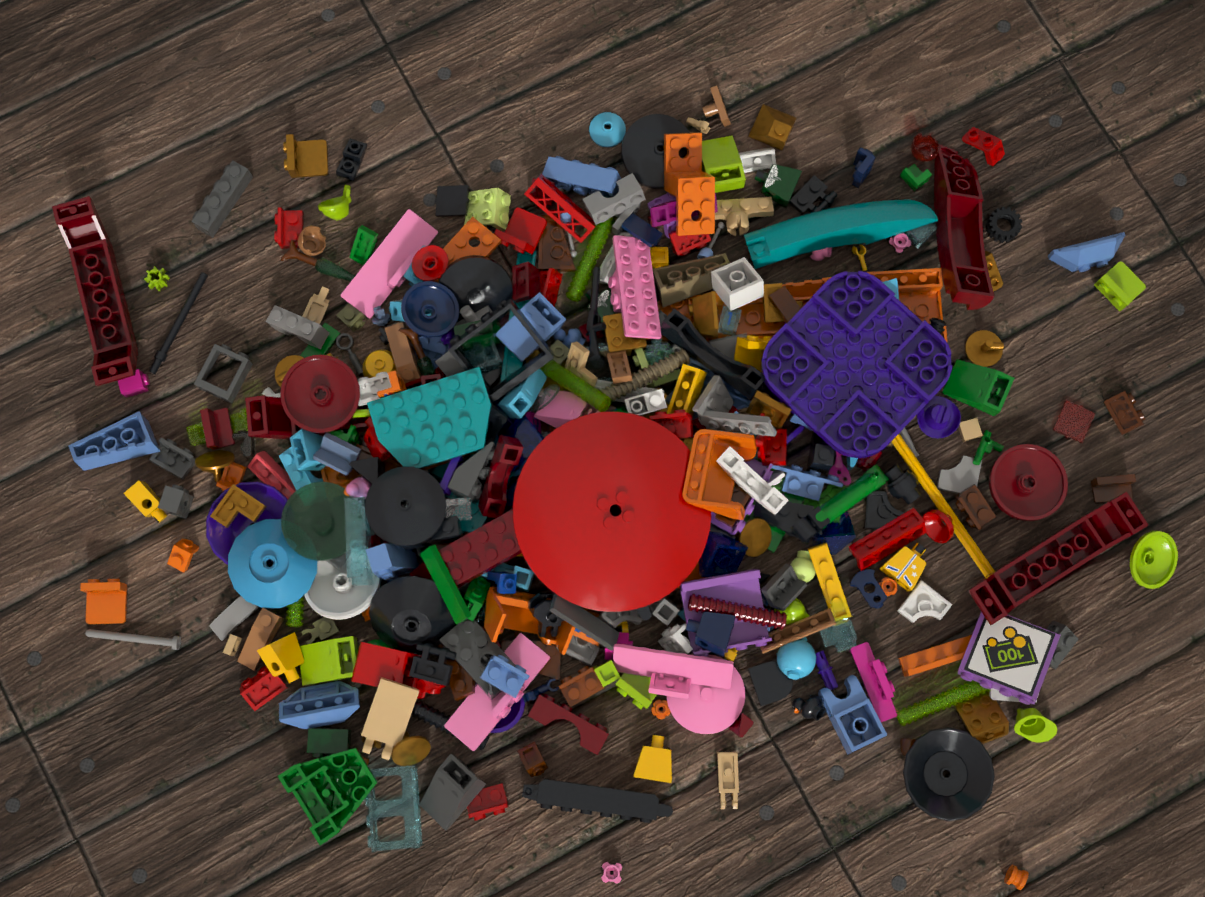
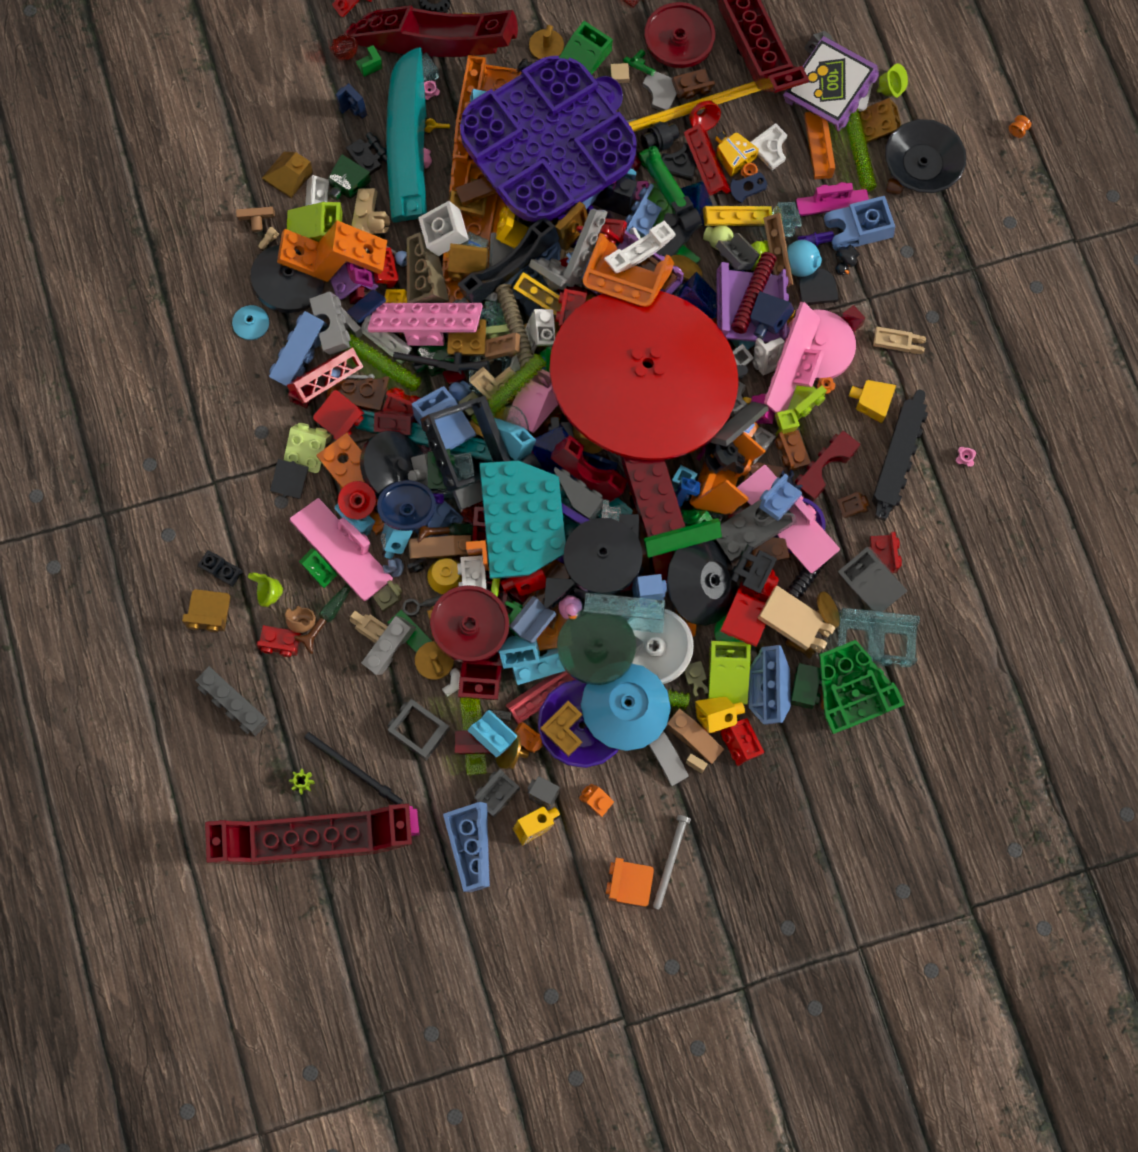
camera: 80 degrees left, 5 degrees down
(221, 440) = (493, 733): none -> medium azure bracket

